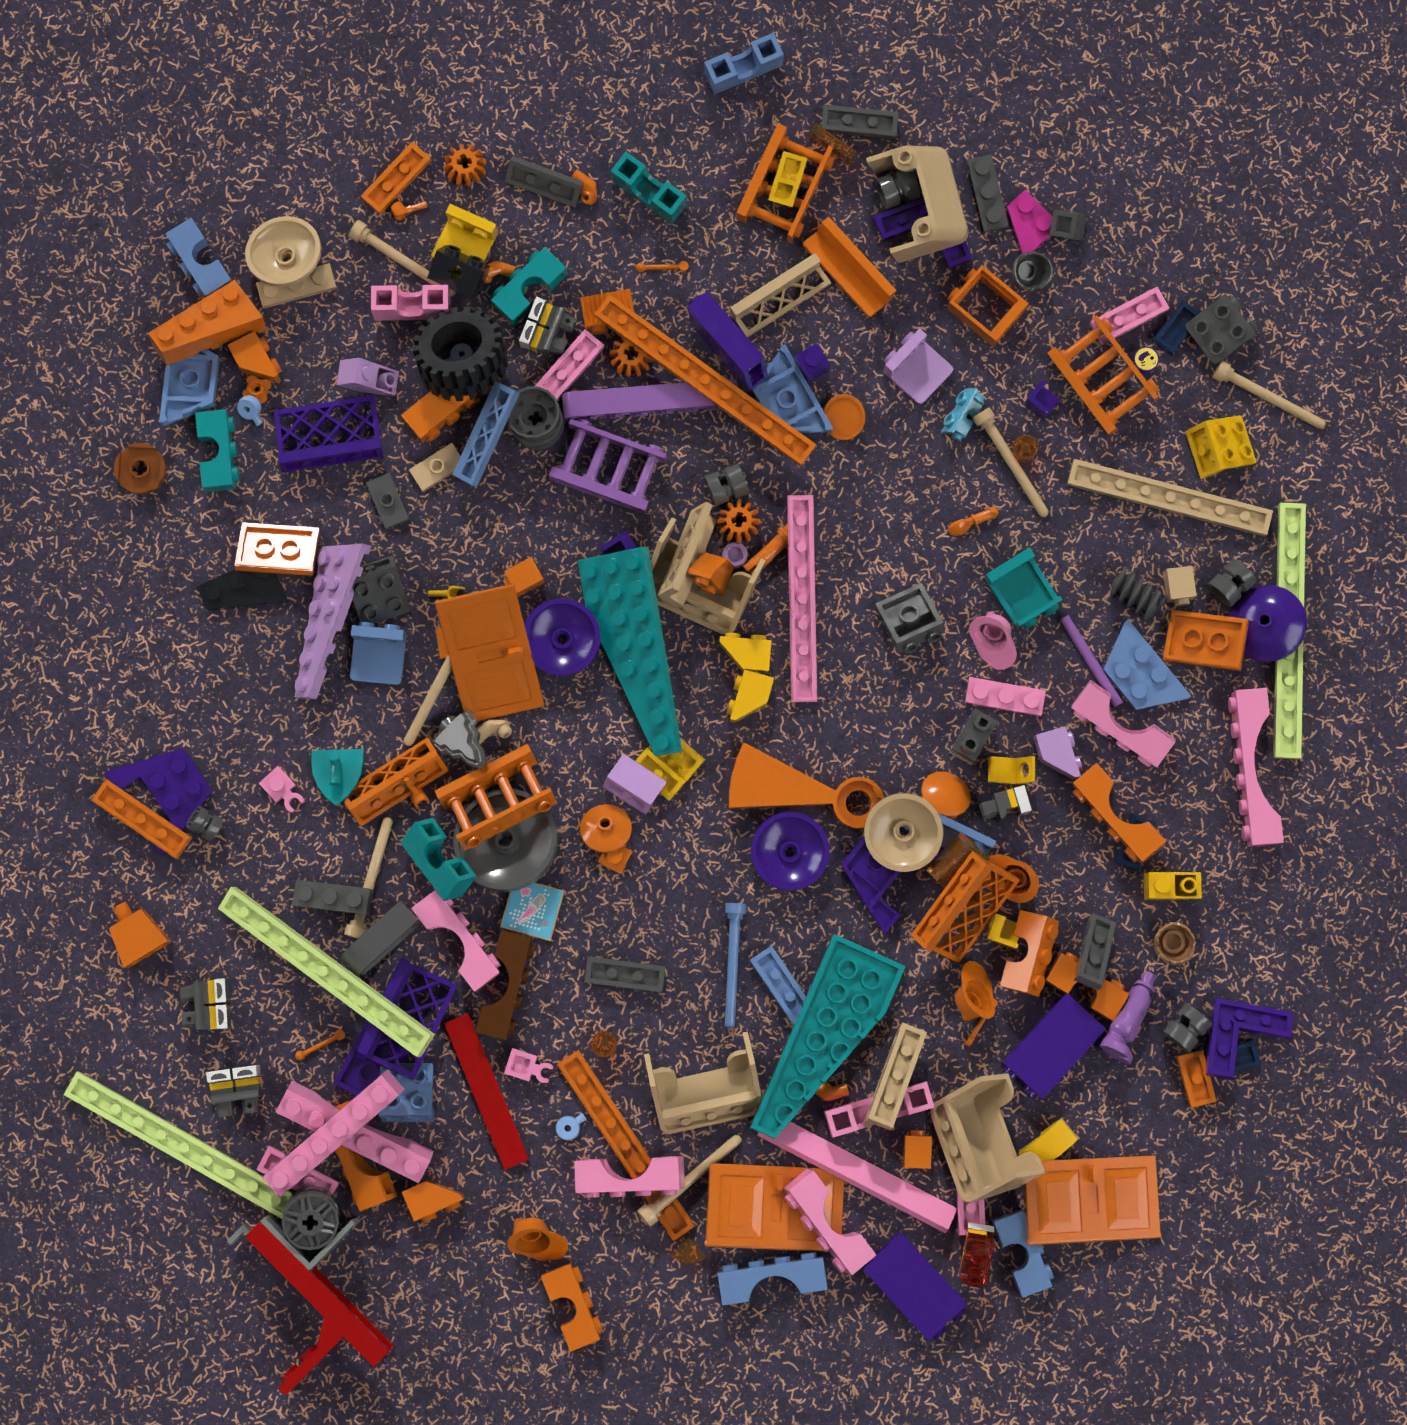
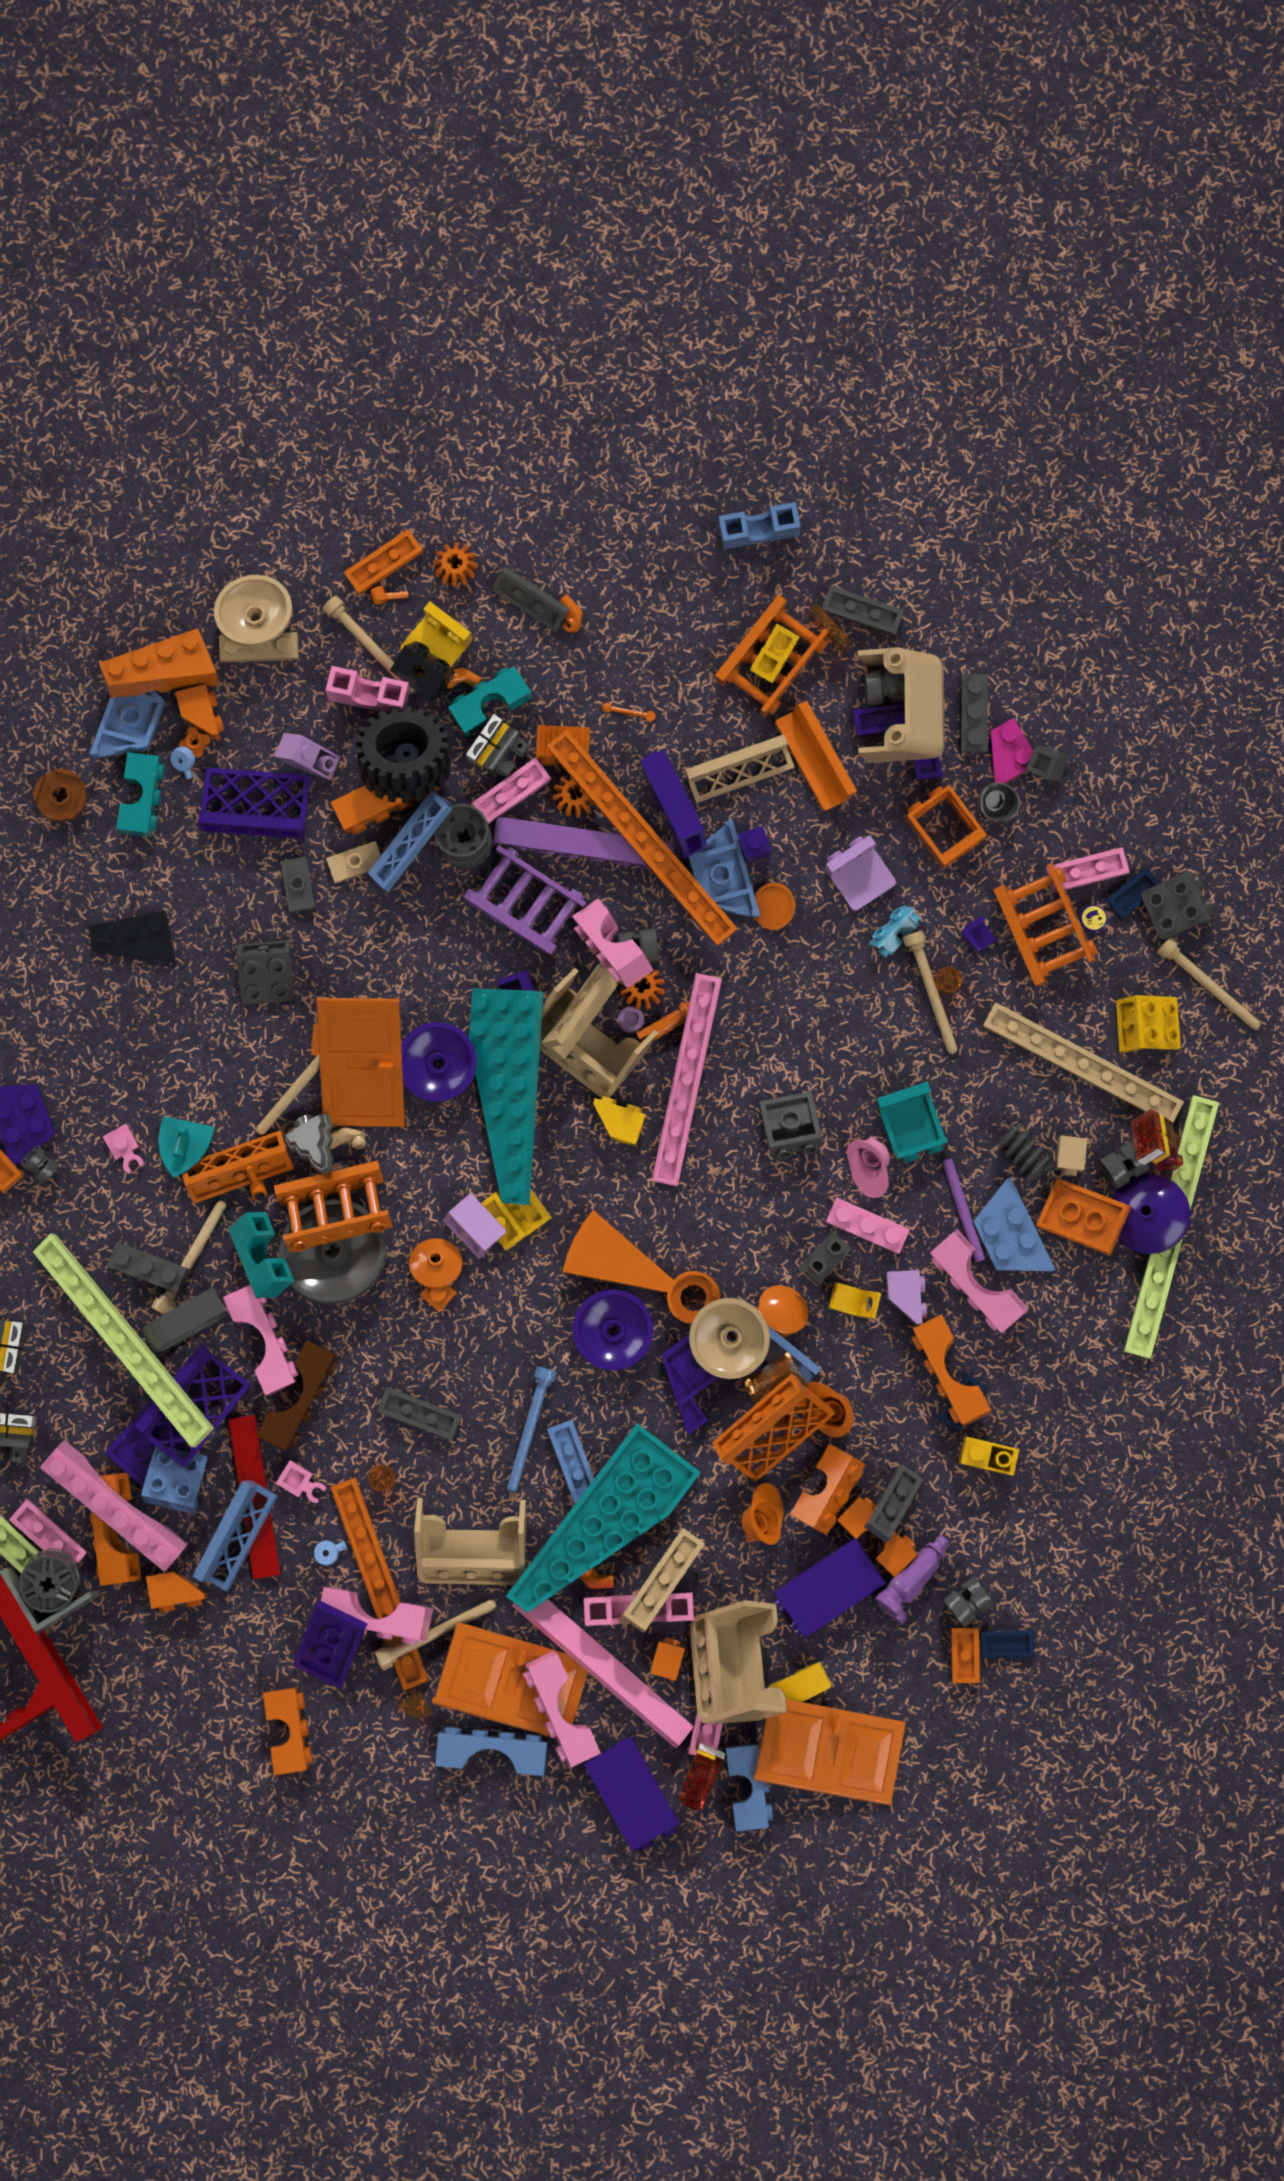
camera: 20 degrees right, 0 degrees up
(187, 242) = (160, 579): medium blue arch -> none
(277, 549) = (176, 907): tile -> none
(327, 611) = (210, 983): lavender wing -> none
(333, 1133) = (92, 1502): bright pink arch -> none
(339, 1035) = (123, 1406): orange hinge -> none
(377, 653) = (251, 1035): medium blue bracket -> none
(451, 592) = (338, 991): yellow hand -> none
(468, 1128) = (228, 1527): none -> medium blue fence
(524, 576) = (414, 992): orange brick -> none
(533, 910) = (344, 1328): medium azure tile -> none
(535, 1240) = (265, 1655): orange piece -> none
(593, 1213) = (330, 1644): none -> dark purple plate
(659, 197) = (631, 630): teal arch -> none
(711, 573) = (601, 1033): orange slope -> none
(718, 498) = (623, 958): none -> bright pink arch
(751, 696) = (613, 1165): yellow slope -> none
(962, 526) = (865, 1044): orange piece -> none
(971, 1038) = (759, 1551): orange hinge -> none
(1002, 932) = (806, 1461): yellow panel -> none
(1006, 801) = (840, 1332): dark grey hips -> none
(1174, 943) = (976, 1514): medium nougat hair -> none
(1234, 1016) = (1016, 1602): dark purple plate -> none
(1257, 552) = (1156, 1141): none -> clear red hips
(1262, 822) = (1095, 1412): bright pink arch -> none

